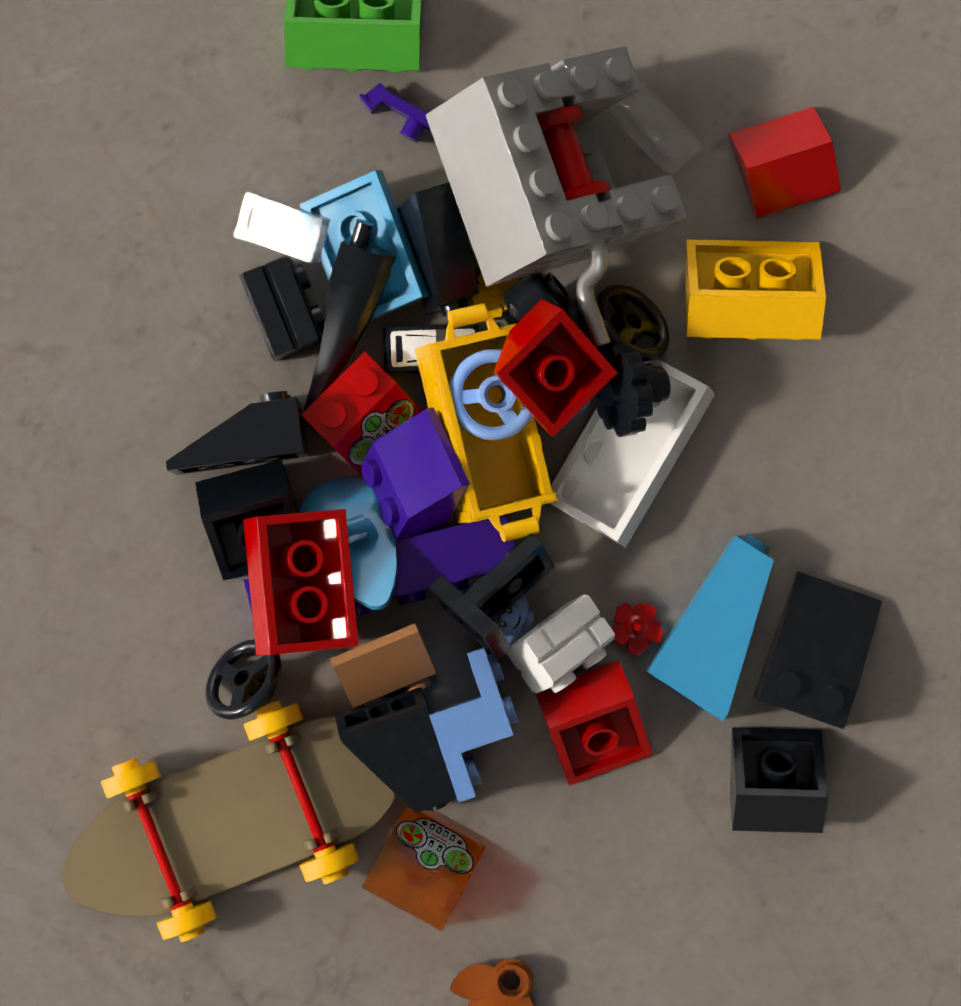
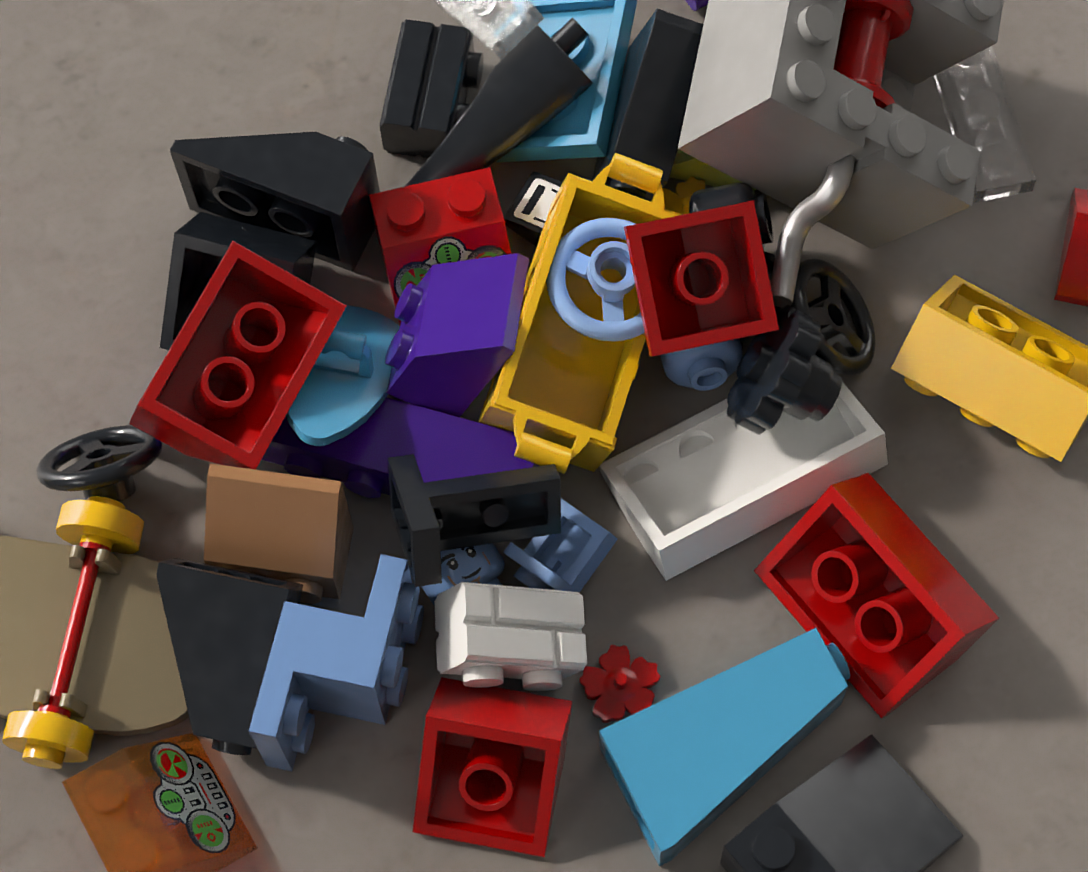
camera: 35 degrees right, 20 degrees down
(563, 581) = (566, 558): none -> medium blue bracket
(755, 486) = (875, 592): none -> red slope

